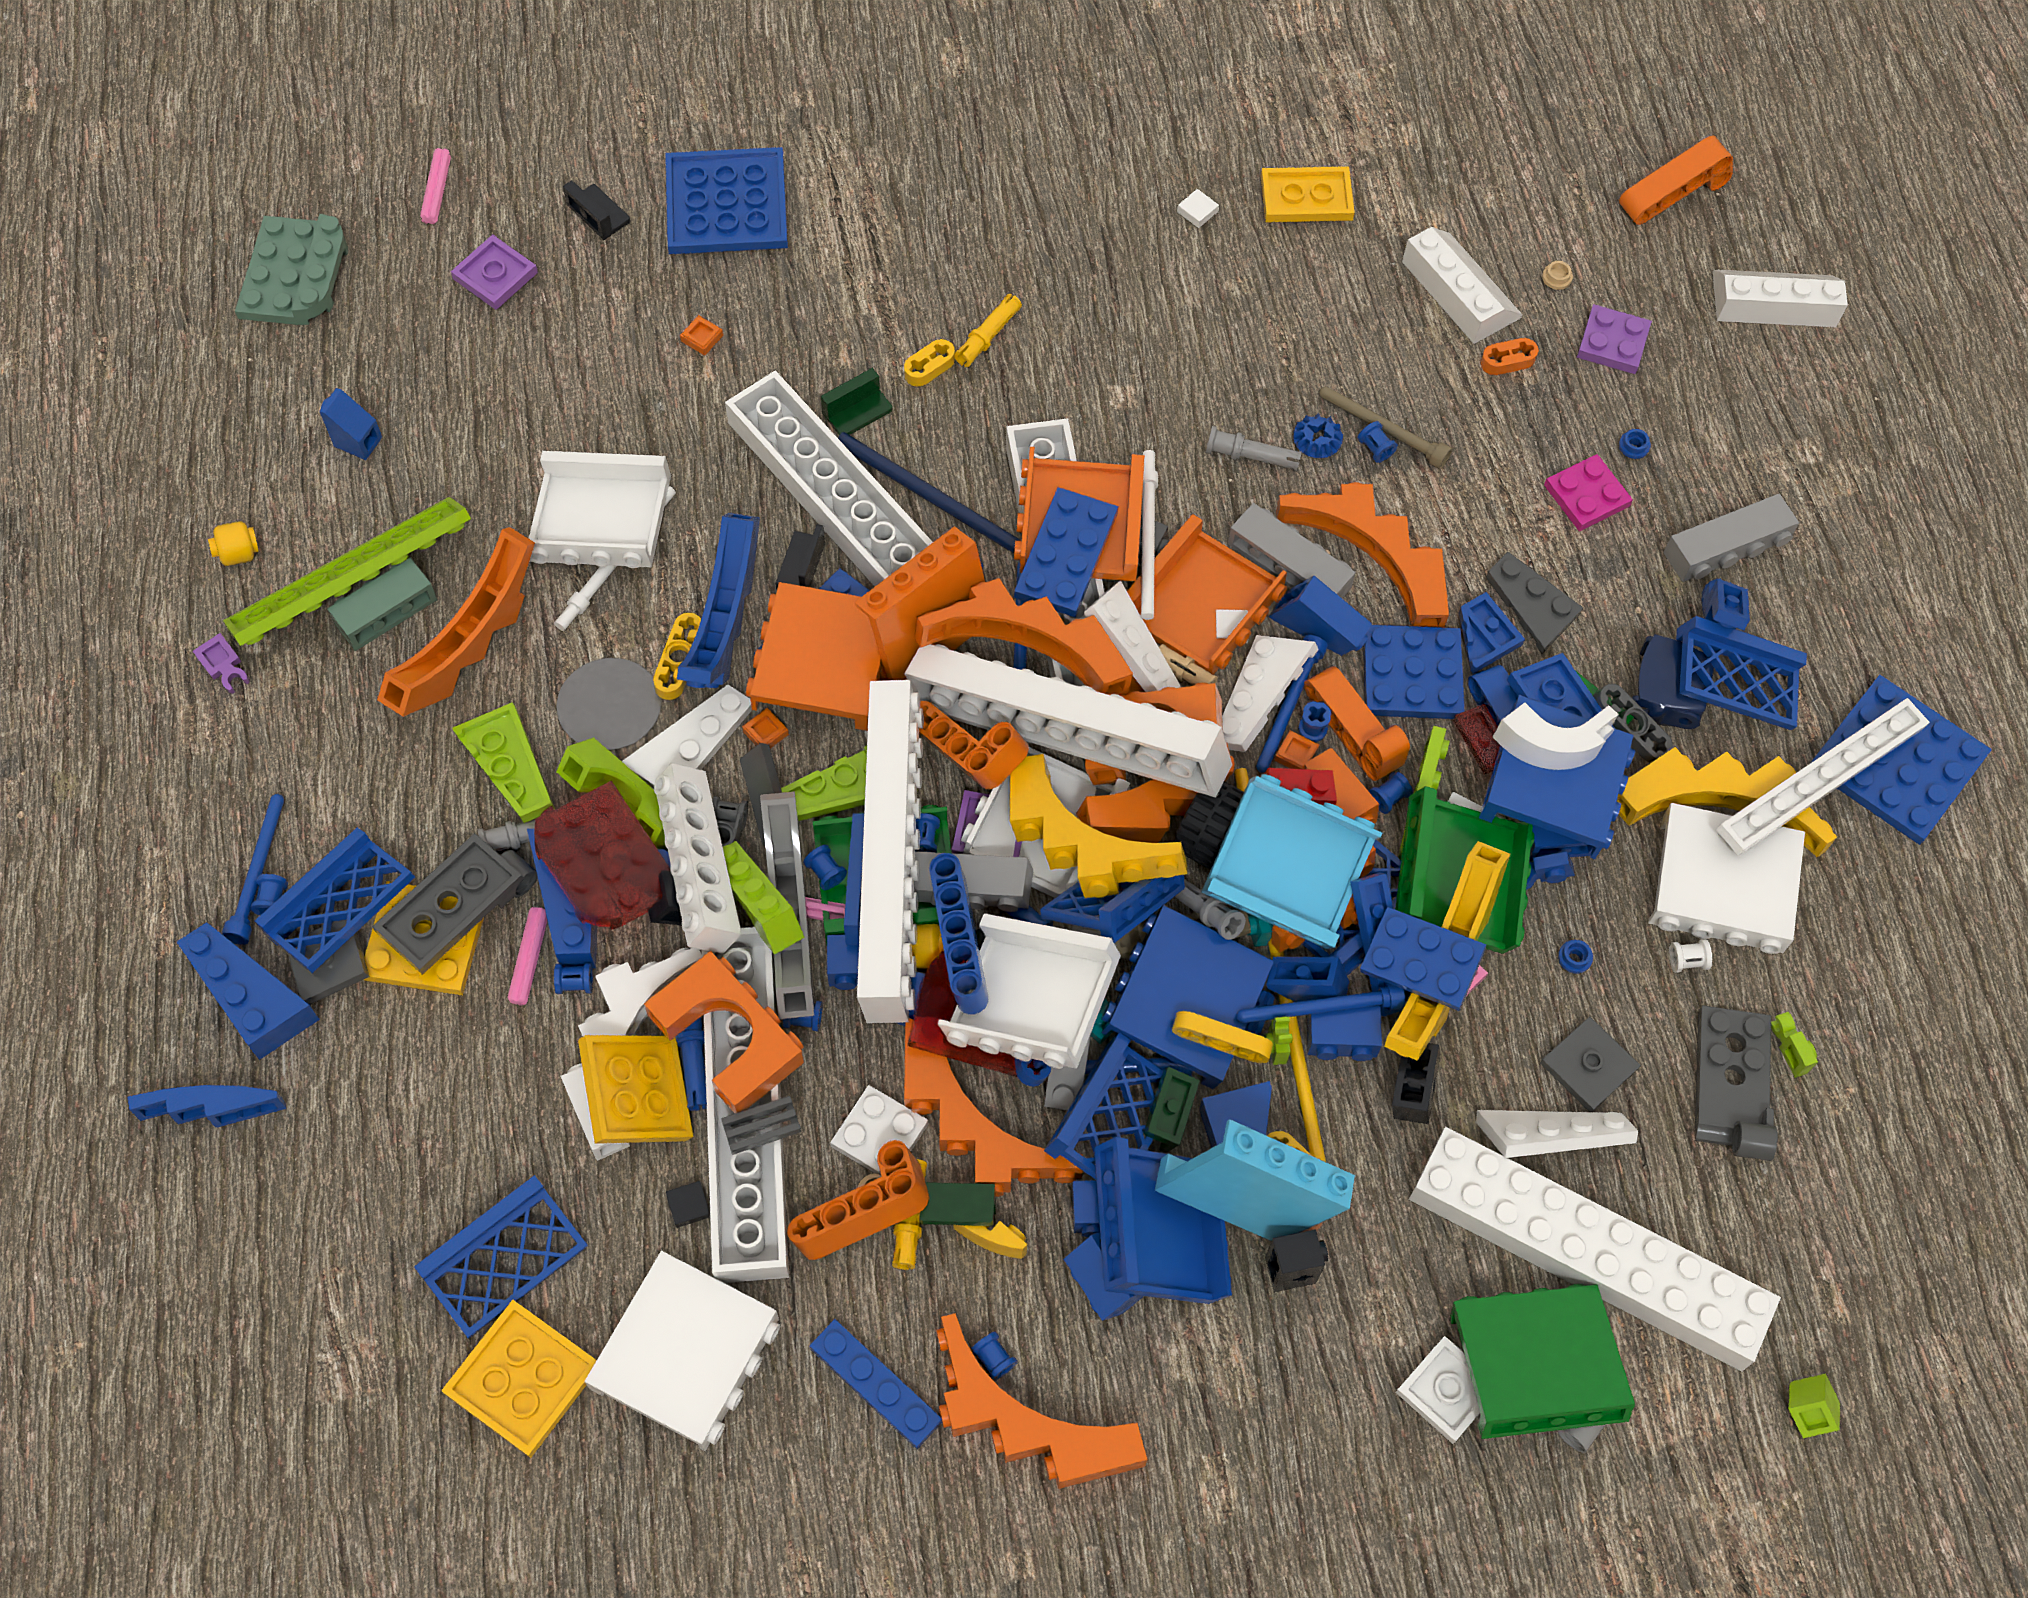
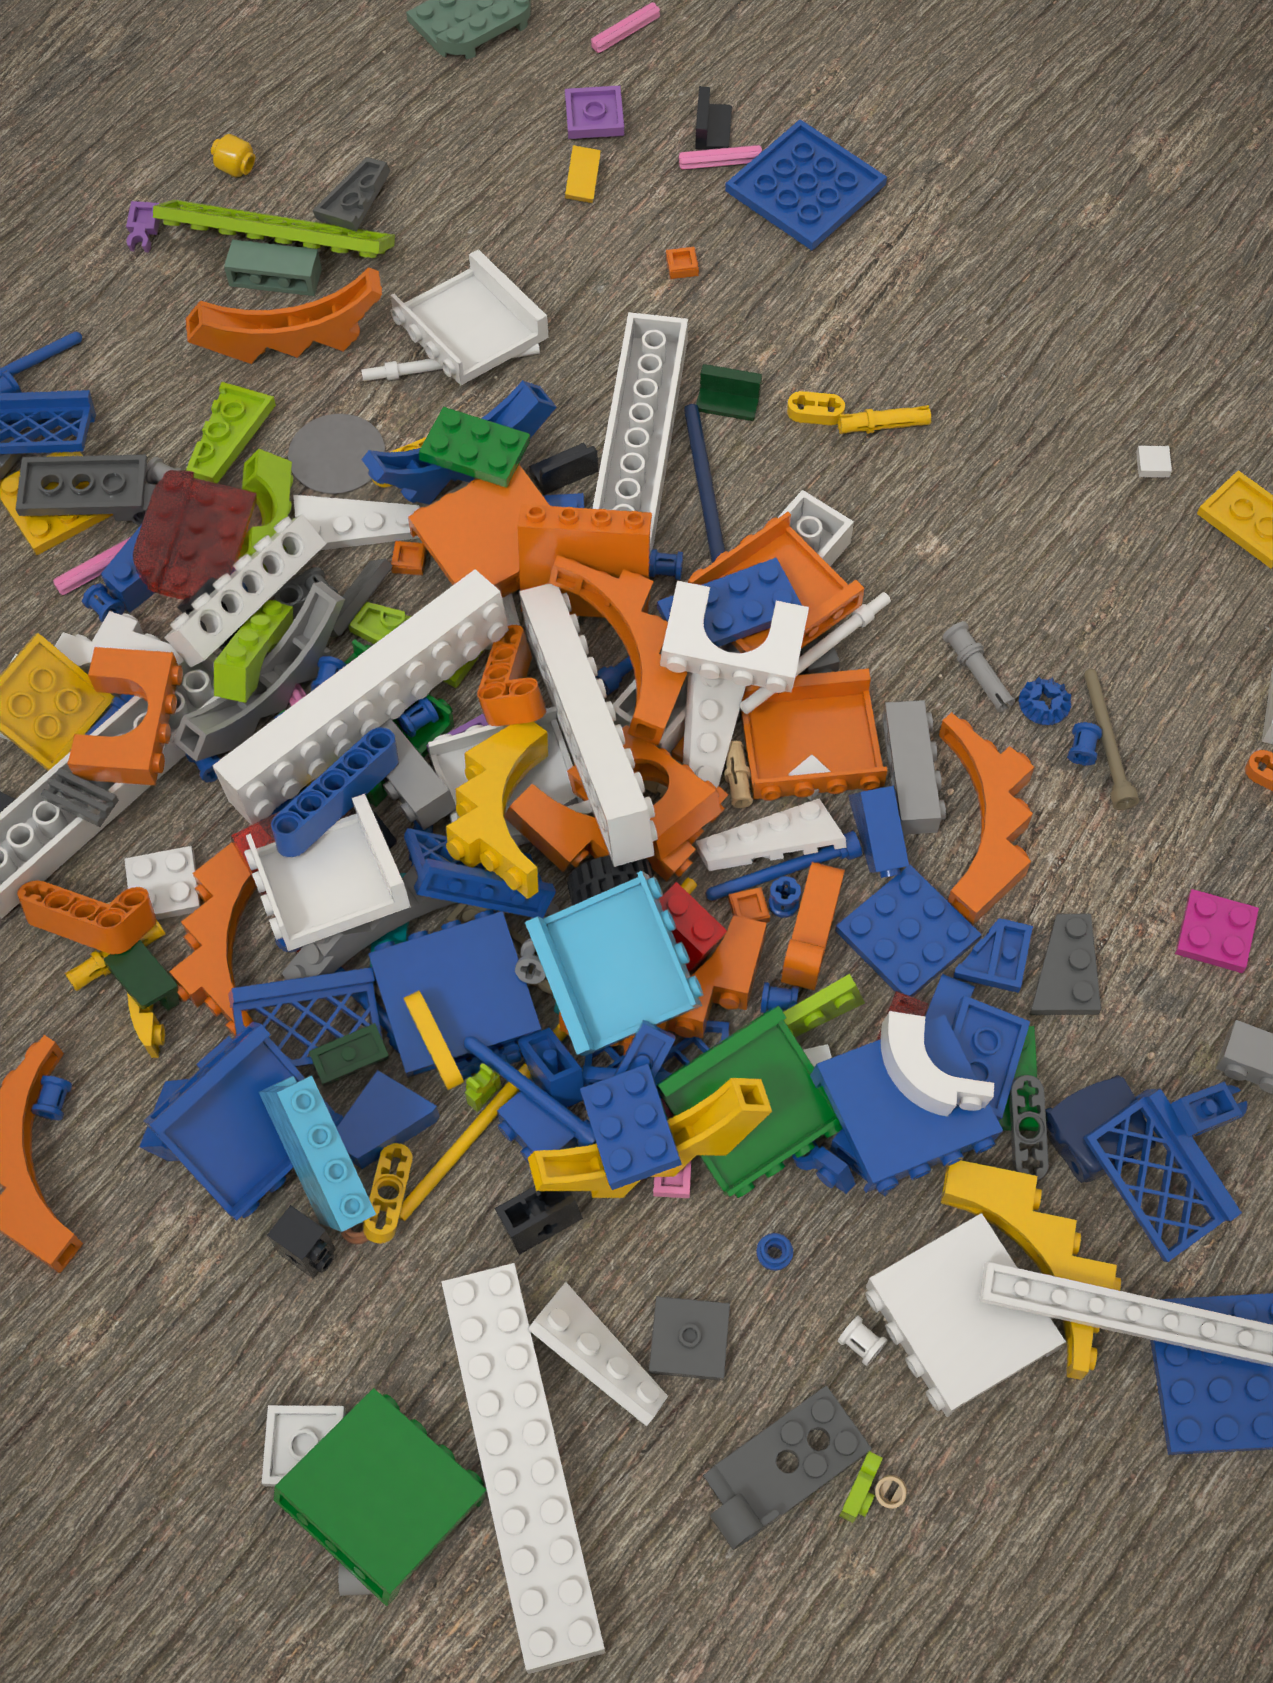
camera: 50 degrees right, 0 degrees up
(349, 425) = (382, 133): blue slope -> none
(379, 493) = (353, 195): none -> dark grey wing
(545, 326) = (582, 174): none -> yellow slope
(634, 231) = (718, 157): none -> bright pink axle
(739, 598) = (474, 446): none -> green plate
(1087, 599) = (768, 666): none -> white arch
(1816, 1026) = (884, 1485): none -> tan hinge

